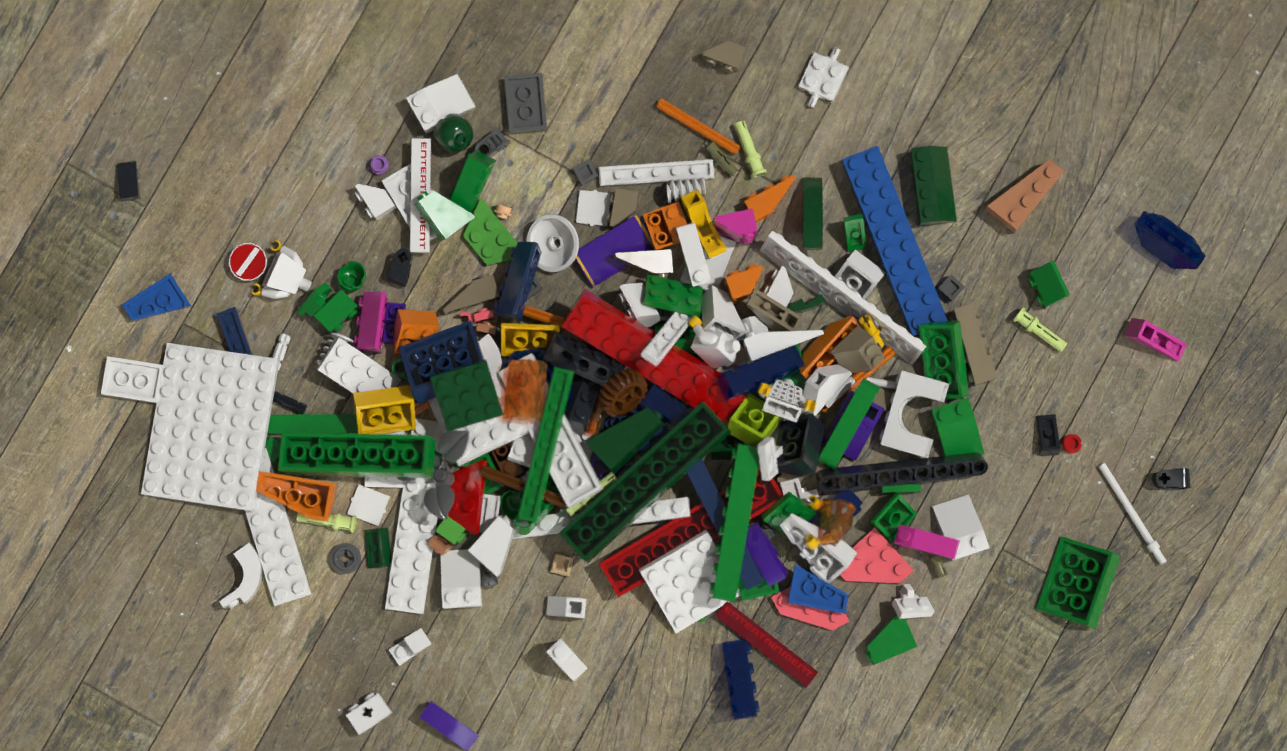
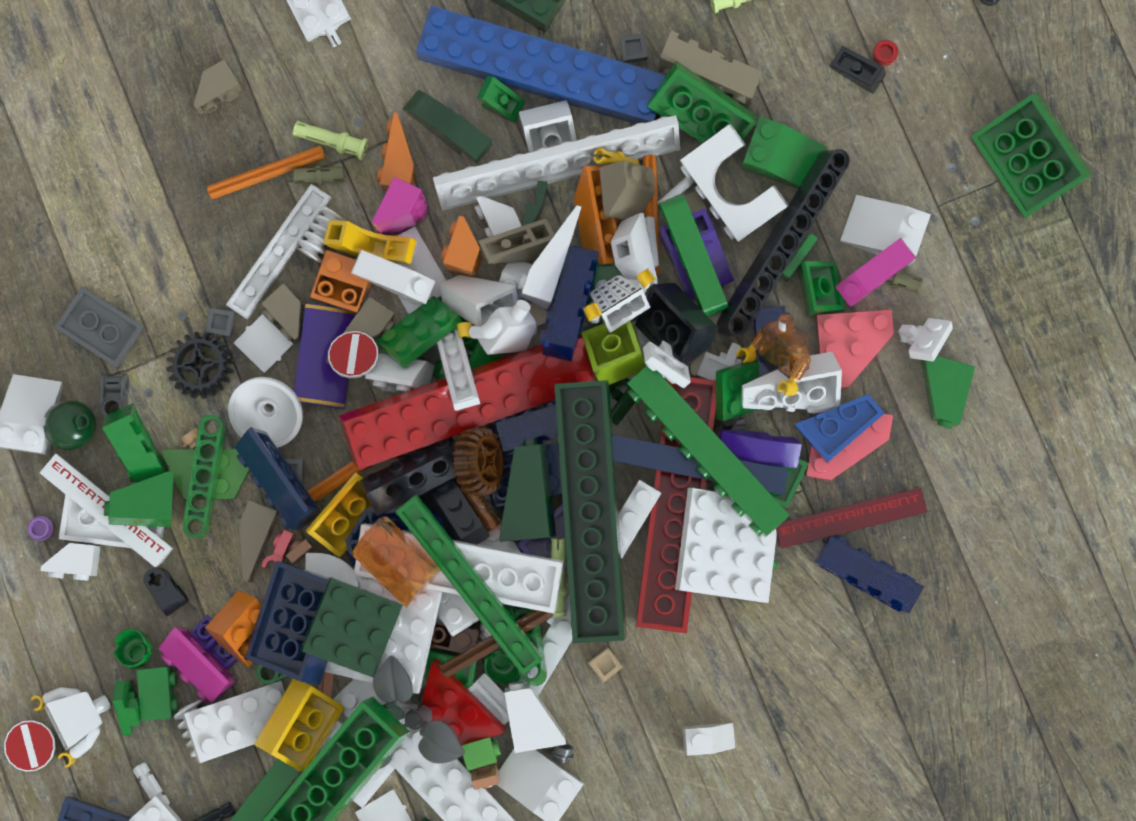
camera: 45 degrees left, 0 degrees up
(491, 229) = (207, 489): none -> green beam
(556, 174) = (199, 354): none -> black gear
(566, 607) = (653, 695): white slope -> none
(628, 268) = (353, 354): none -> red piece
(1153, 546) = (1051, 53): white bar -> none

